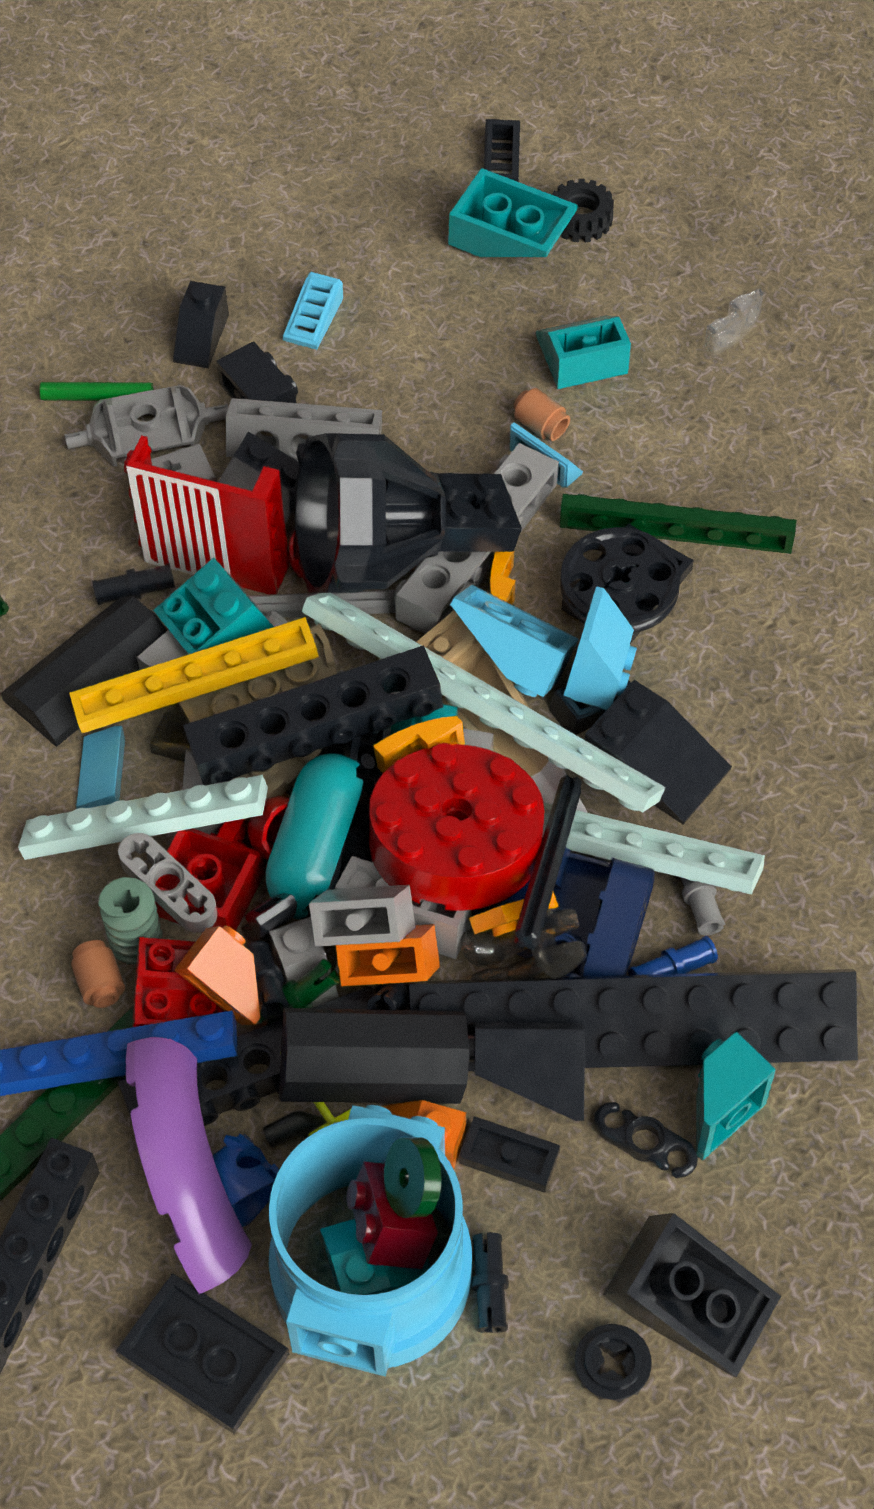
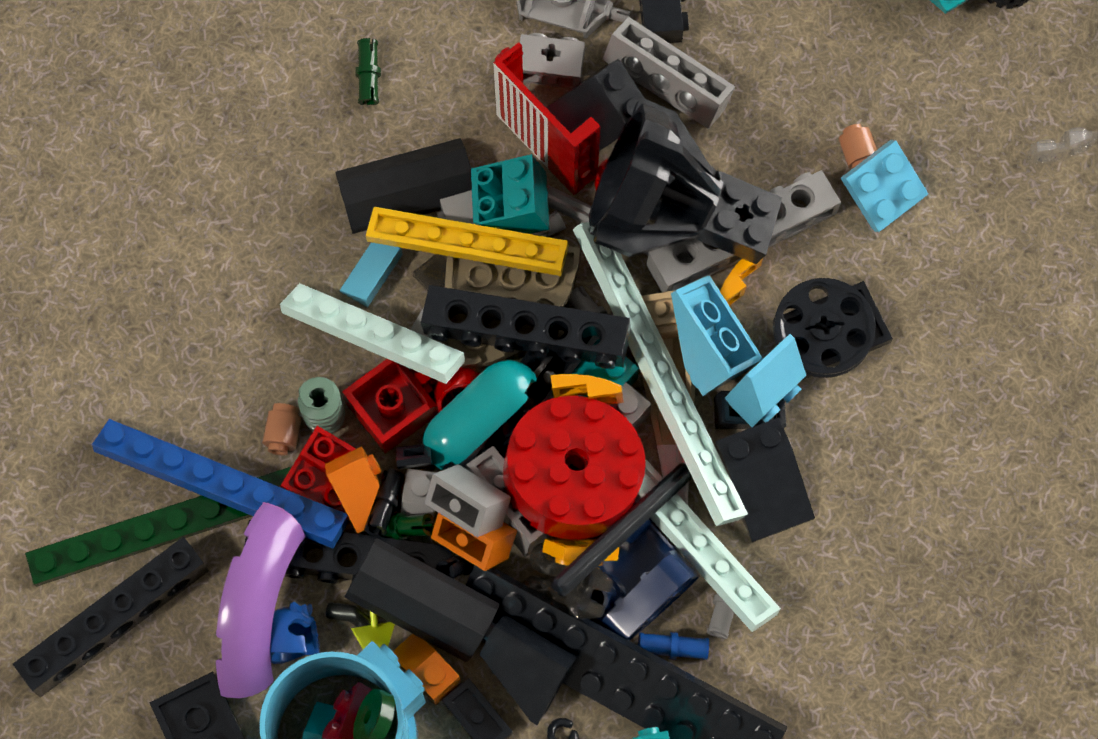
camera: 30 degrees right, 15 degrees up
(133, 584) = (476, 132): black pin -> none
(171, 900) = (360, 371): light grey beam -> none
(566, 470) = (834, 168): medium azure slope -> none
(586, 350) = (928, 108): teal slope -> none
(589, 431) = (884, 185): none -> medium azure plate
(680, 523) = (910, 306): dark green plate -> none

